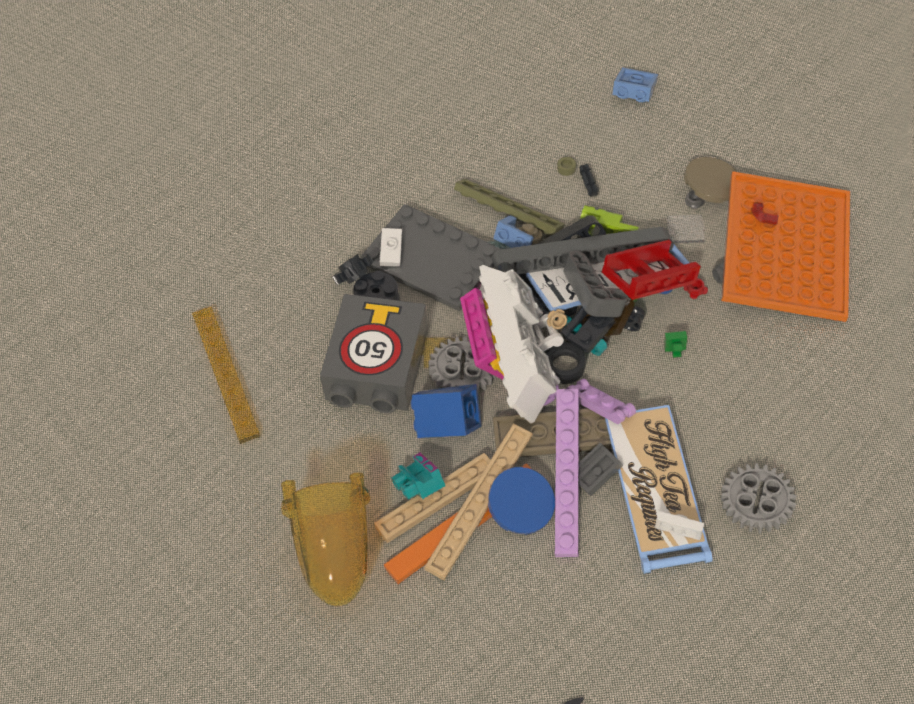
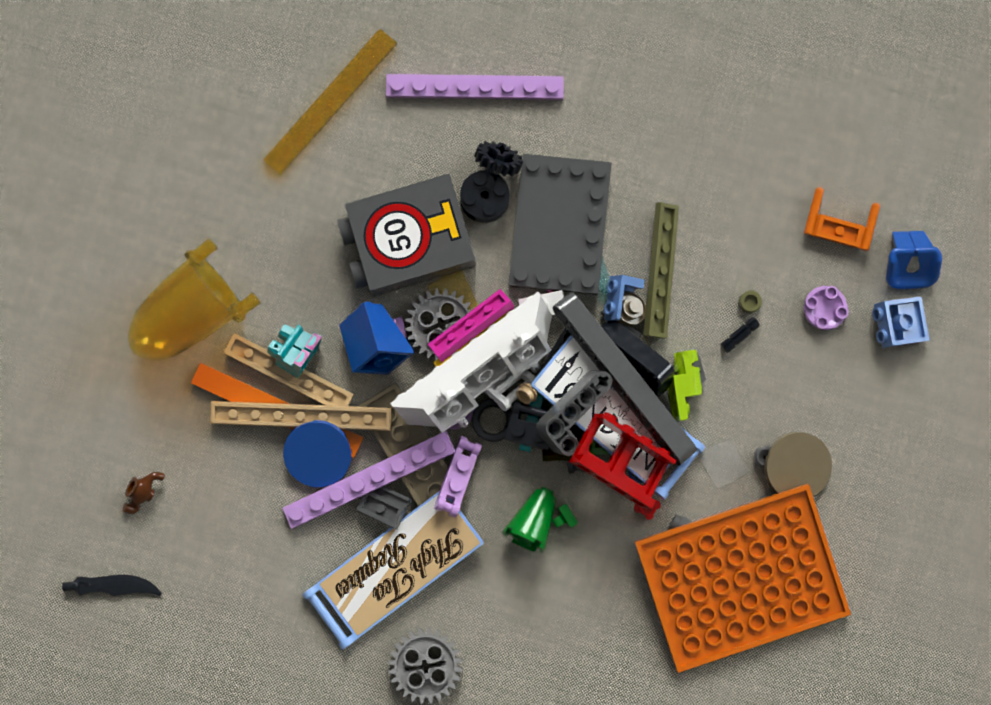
camera: 60 degrees right, 30 degrees up
(282, 272) = (474, 87): none -> lavender plate
(390, 247) = (545, 180): white plate -> none
(473, 667) = (140, 491): none -> reddish brown piece
(543, 95) = (839, 230): none -> orange plate
(583, 59) = (905, 247): none -> blue piece
(598, 123) = (825, 307): none -> lavender dish
(670, 366) = (533, 521): none -> green cone
(679, 525) = (356, 609): white plate -> none
(761, 216) = (758, 540): clear red arm -> none

